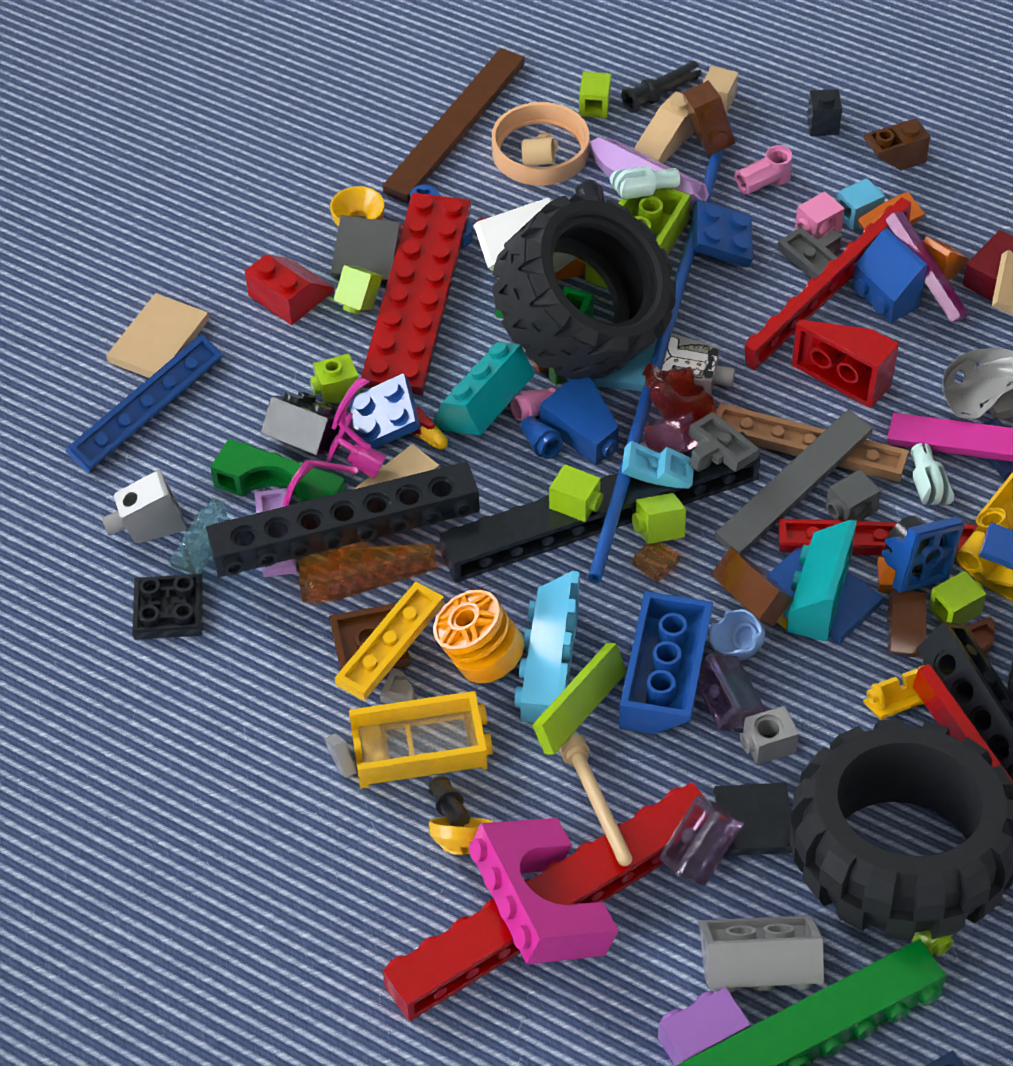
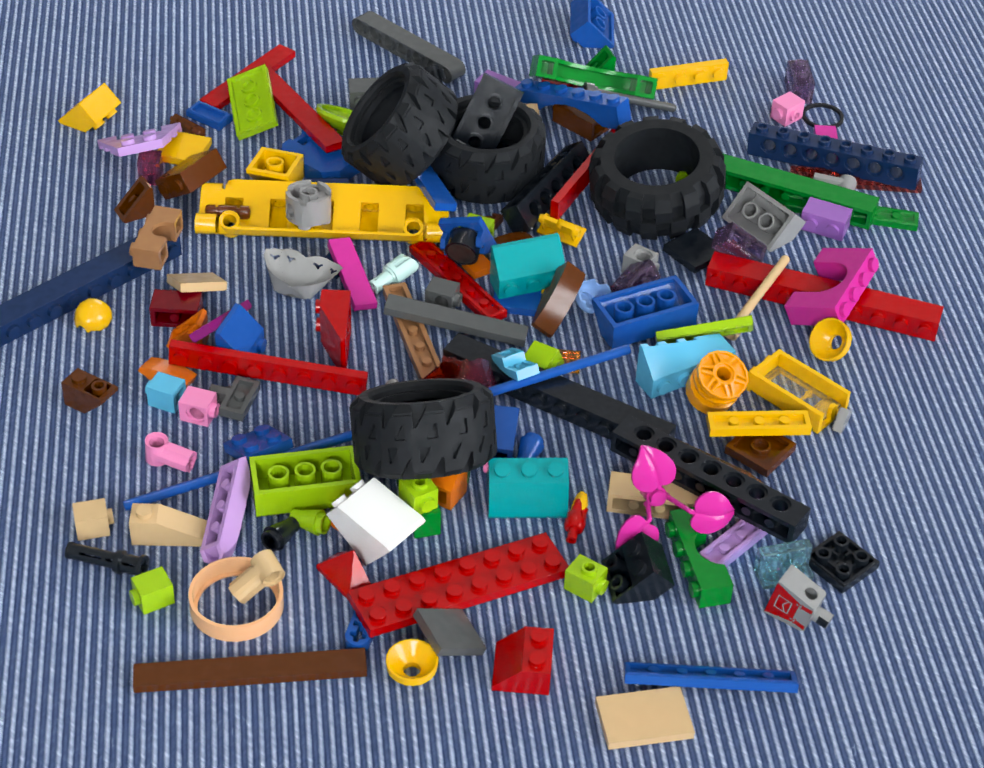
camera: 130 degrees left, 10 degrees down
(357, 289) = (495, 608): brick -> none
(385, 412) = (589, 532): plate -> none
(448, 801) = (823, 351): black axle -> none
(575, 493) = (576, 385): lime brick -> none
(643, 181) = (267, 474): light aqua arm -> none
(708, 117) = (152, 481): reddish brown brick -> none
(720, 444) = (473, 341): dark grey hinge -> none
(824, 112) = (76, 447): black brick -> none

